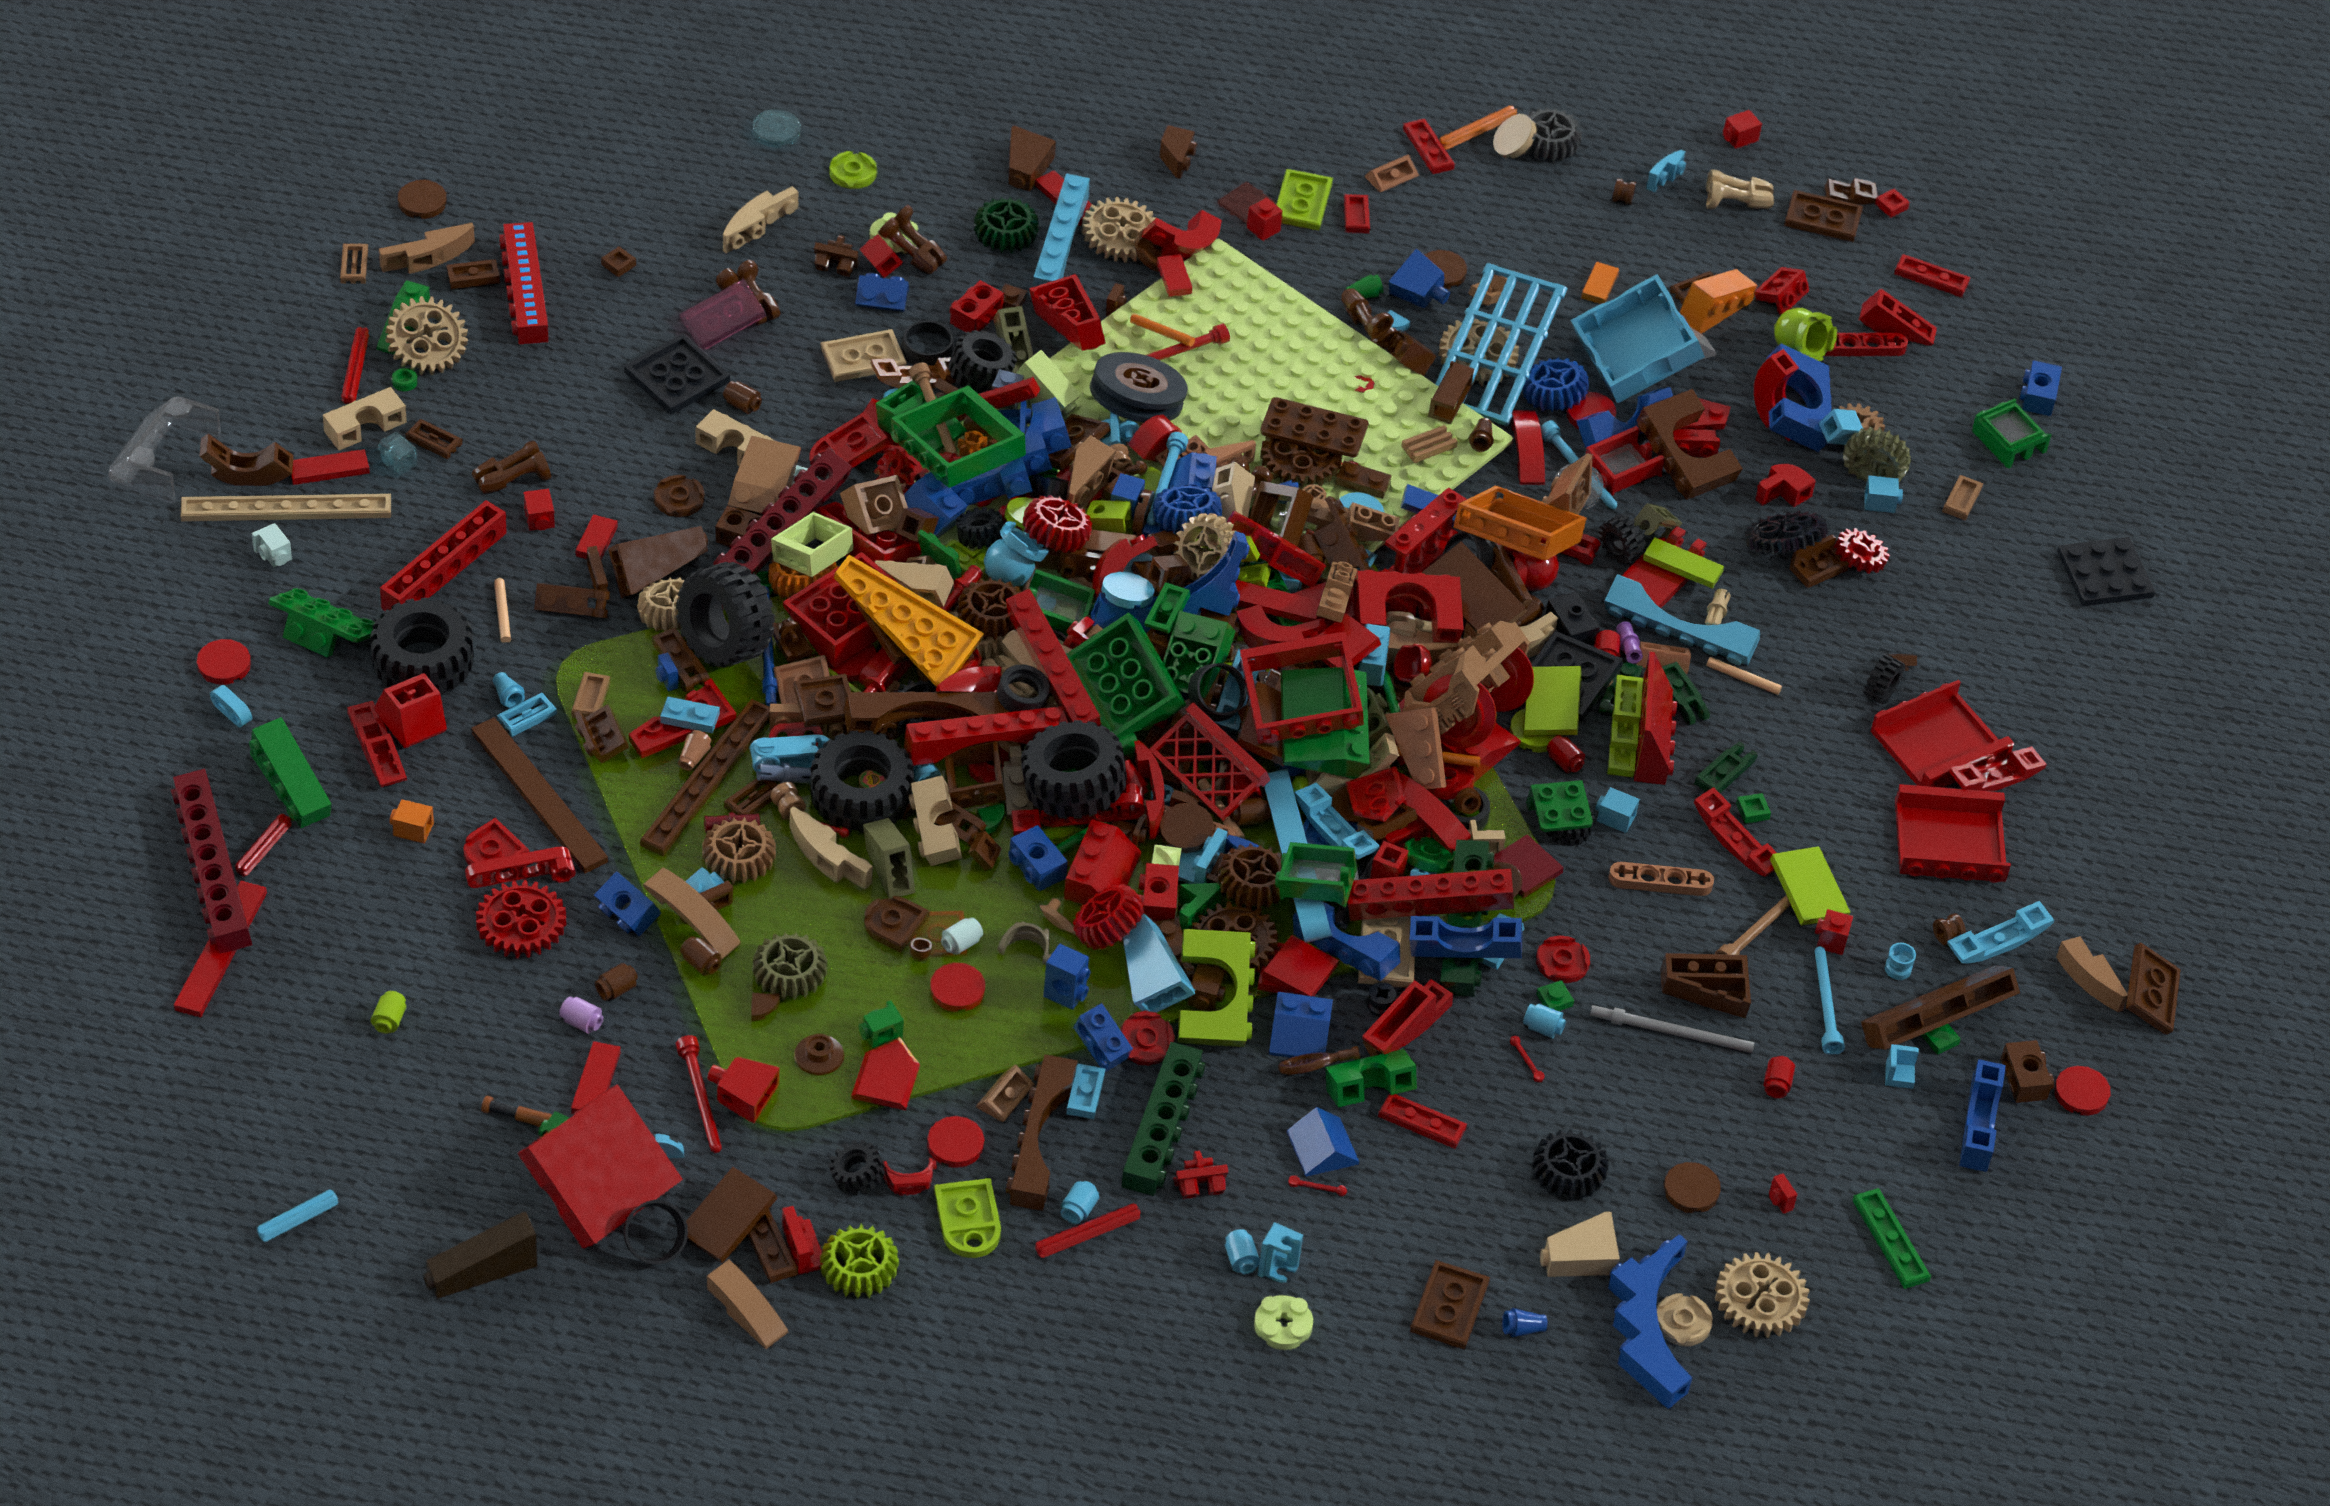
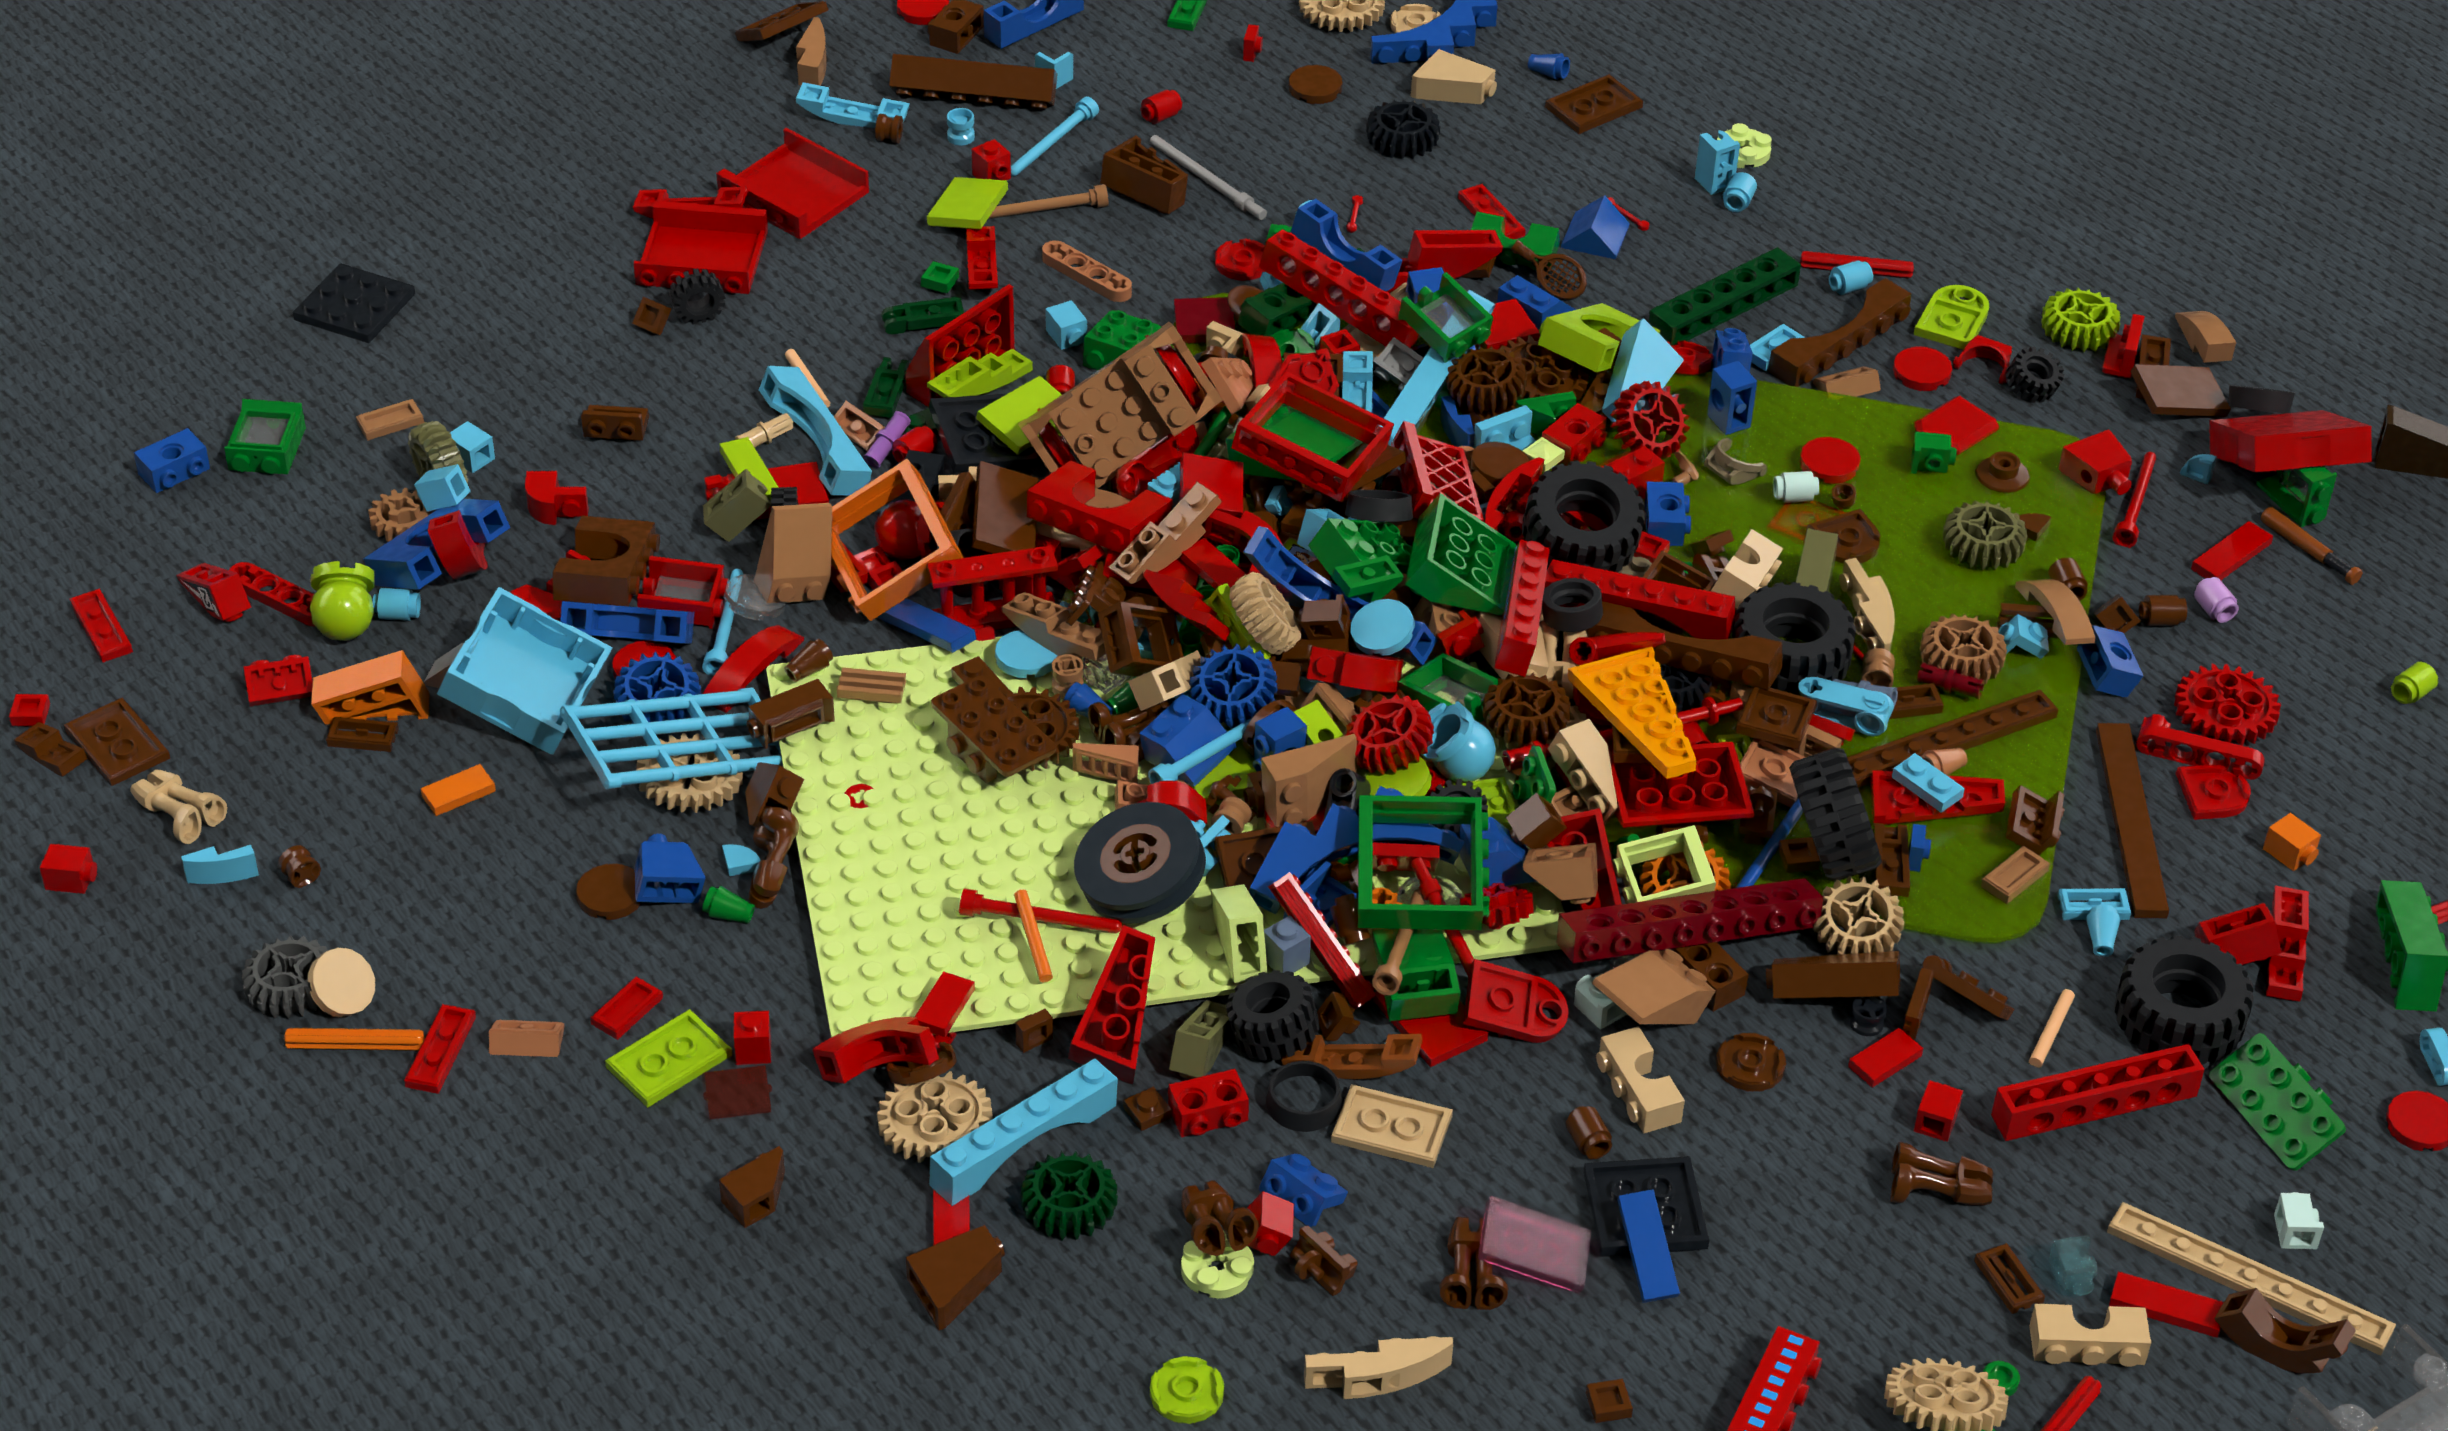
camera: 140 degrees left, 5 degrees down
(648, 958) = (2117, 615): none -> reddish brown panel
(656, 340) = (1648, 1246): none -> blue tile
(1188, 1179) = (1726, 248): red hips -> none
(1493, 292) = (596, 833): medium nougat bracket -> none
(1786, 532) = (633, 463): black gear -> none
(1861, 550) = (561, 407): red gear -> none

